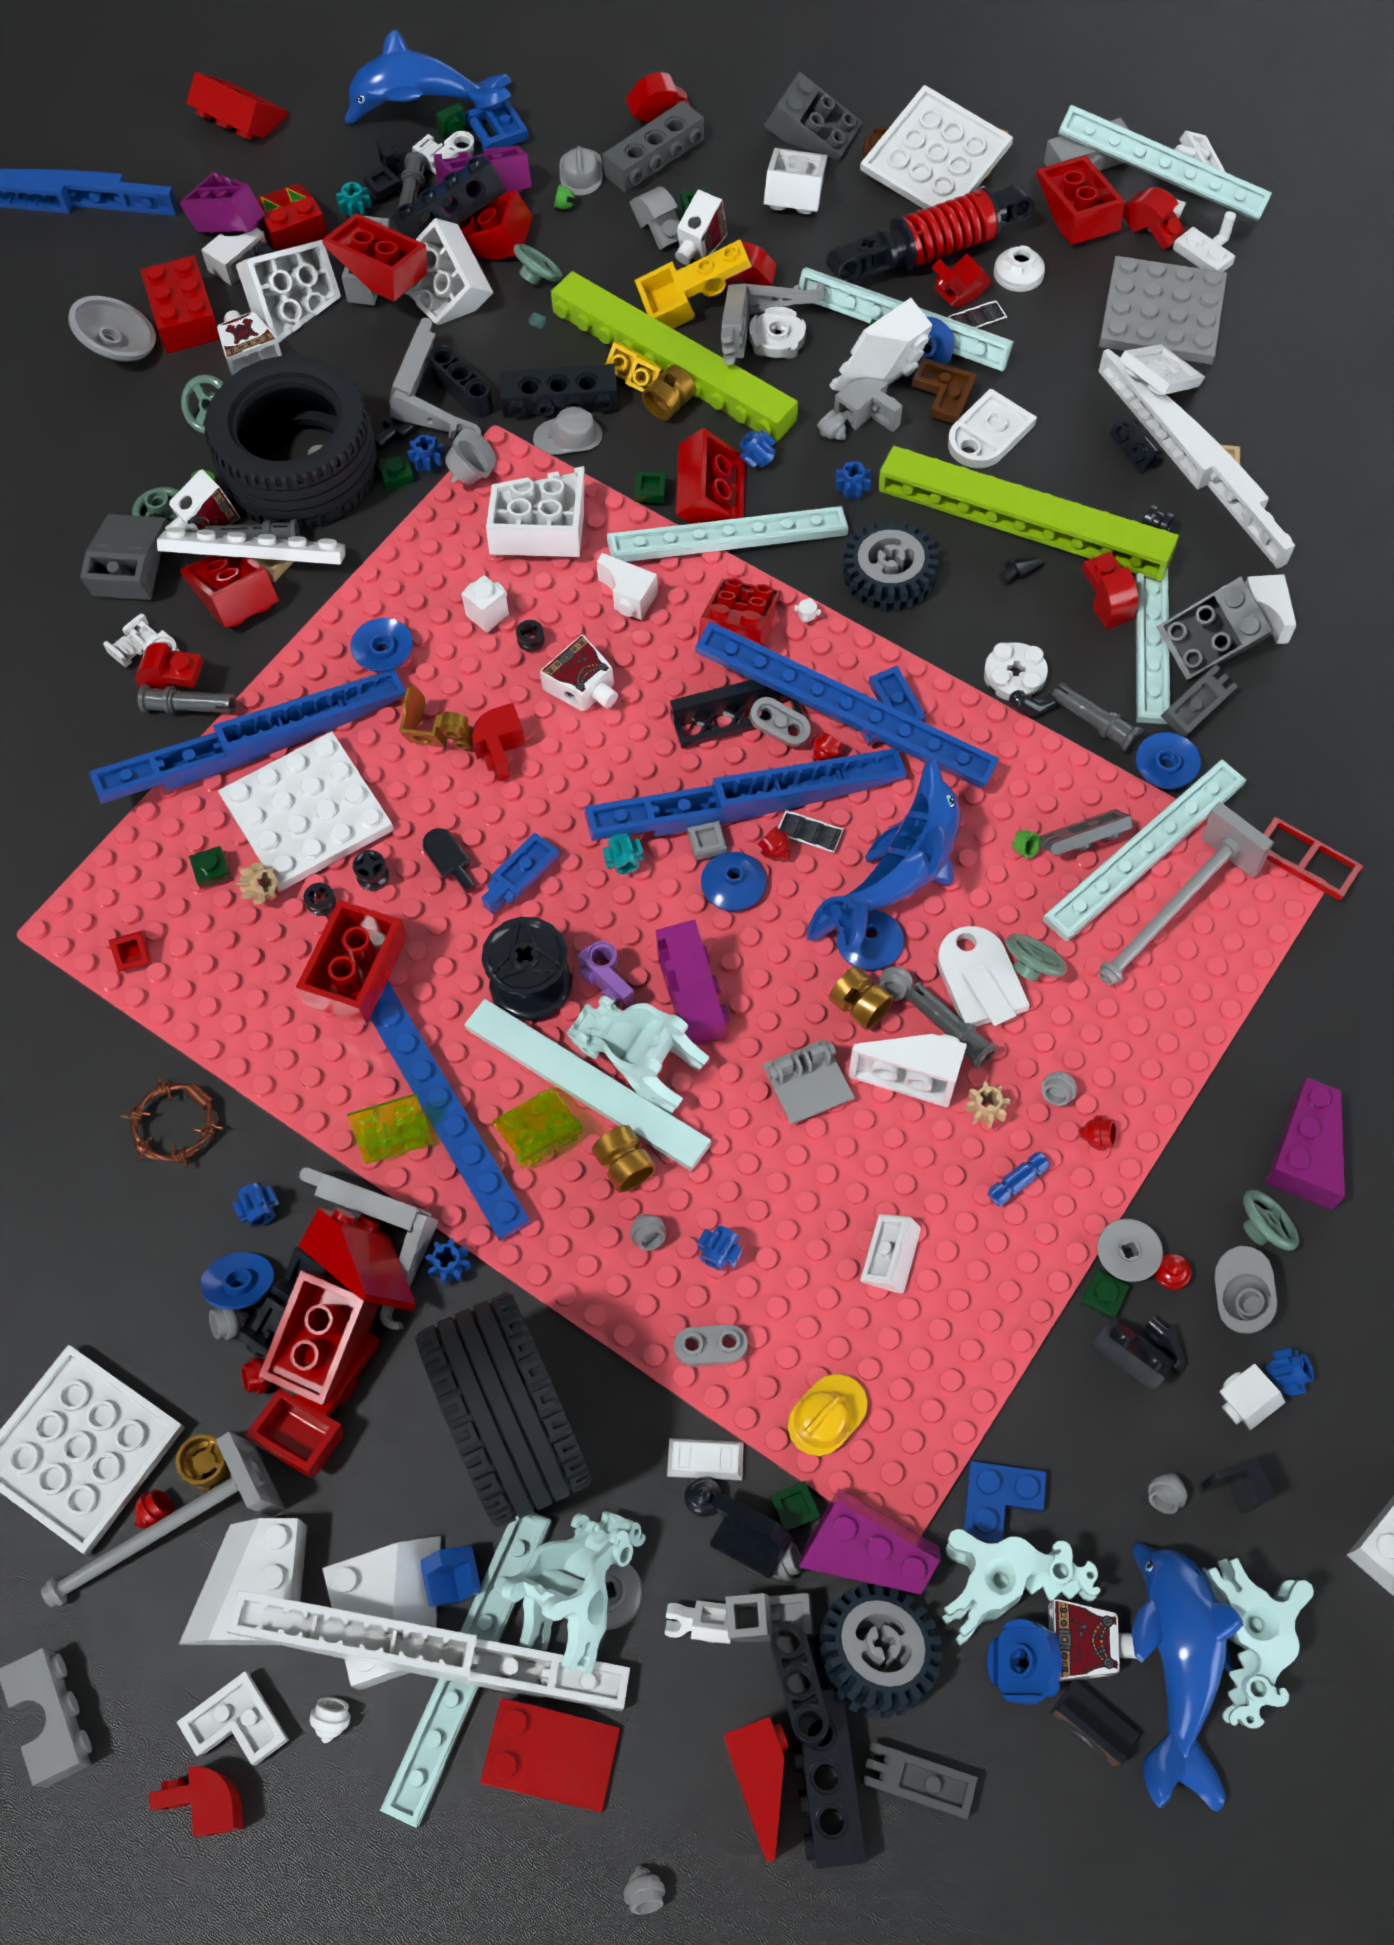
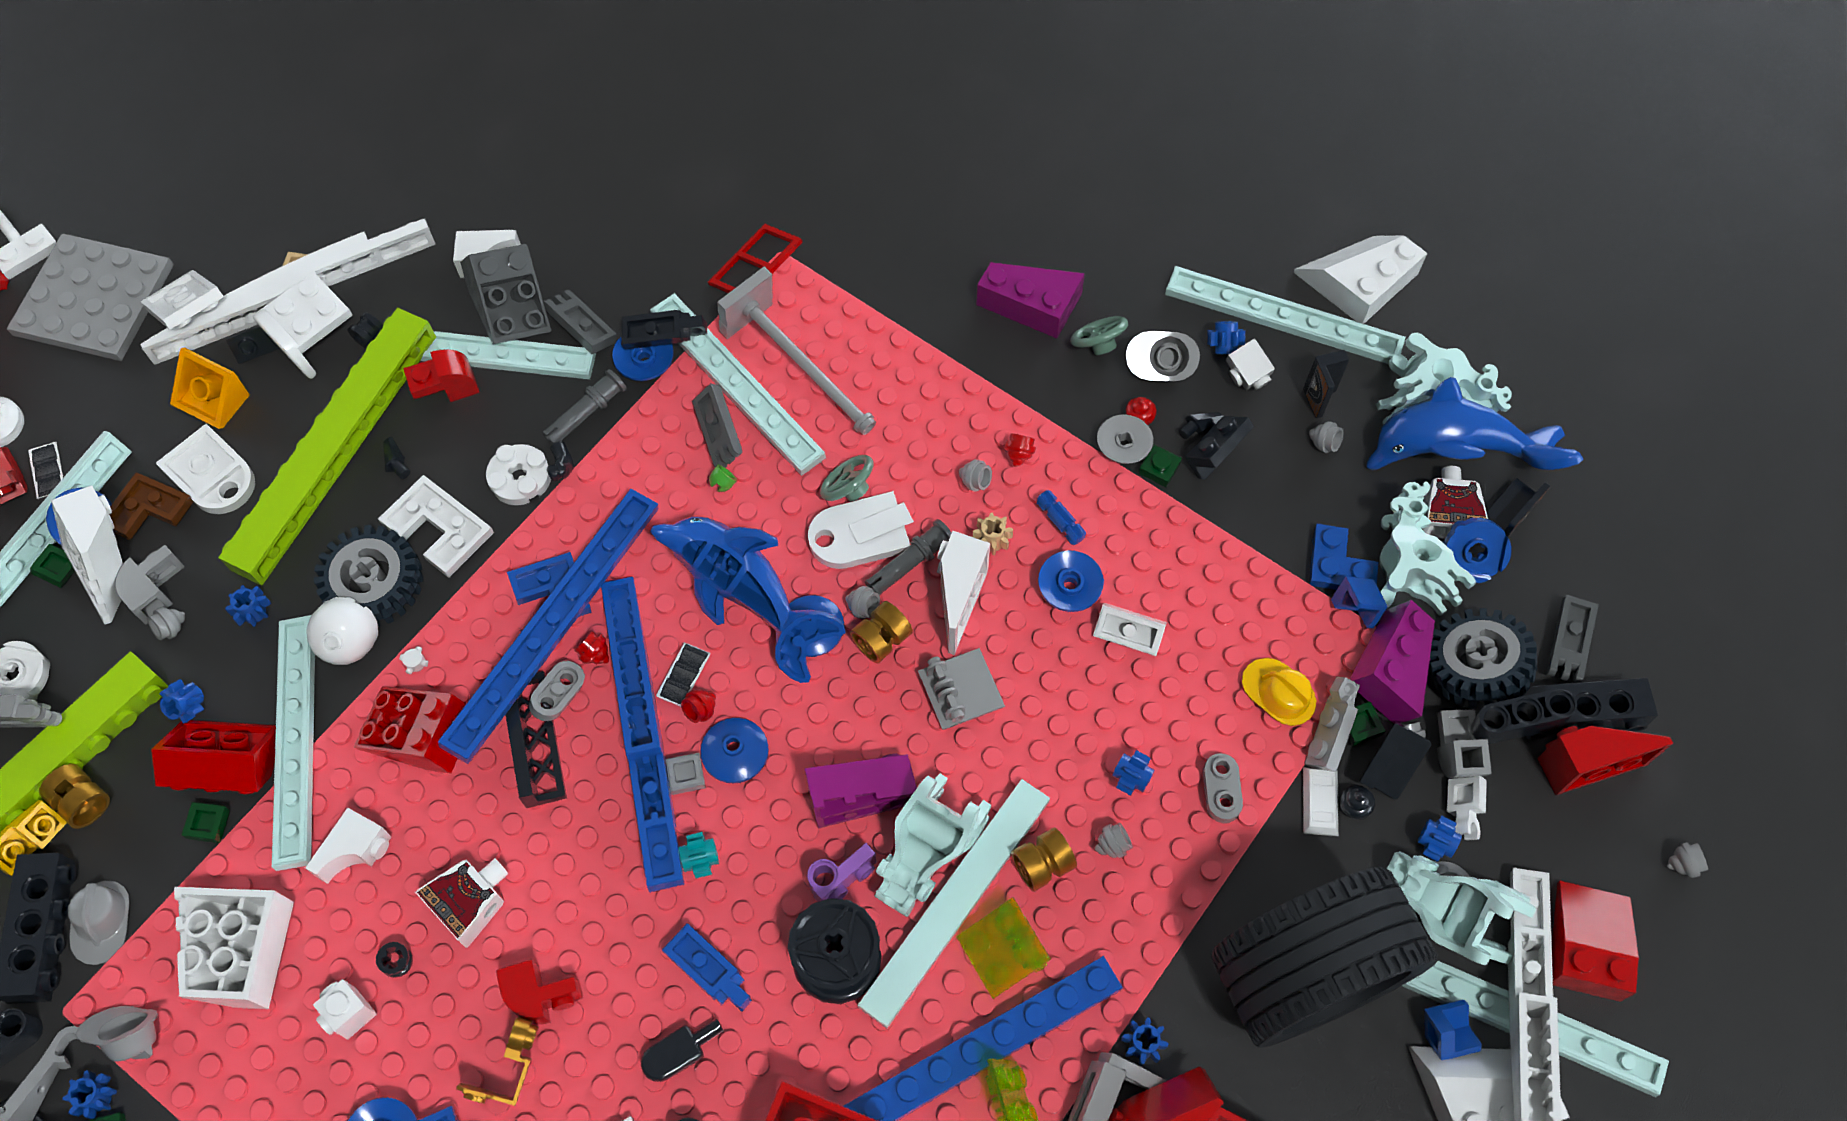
camera: 90 degrees left, 0 degrees up
(660, 1583) = (1439, 838): none -> blue gear
(785, 1468) = (1334, 726): none -> light grey hinge
(827, 547) = (342, 631): none -> white cylinder
(942, 1170) = (1074, 568): none -> blue dish
(946, 1510) = (1360, 596): none -> blue panel
(971, 603) = (461, 527): none -> white plate
(1071, 411) = (206, 389): none -> light orange slope
(1155, 464) = (302, 318): none -> white piece
(1193, 766) = (660, 328): none -> black hinge
(1341, 1454) = (1284, 315): none -> light aqua tile

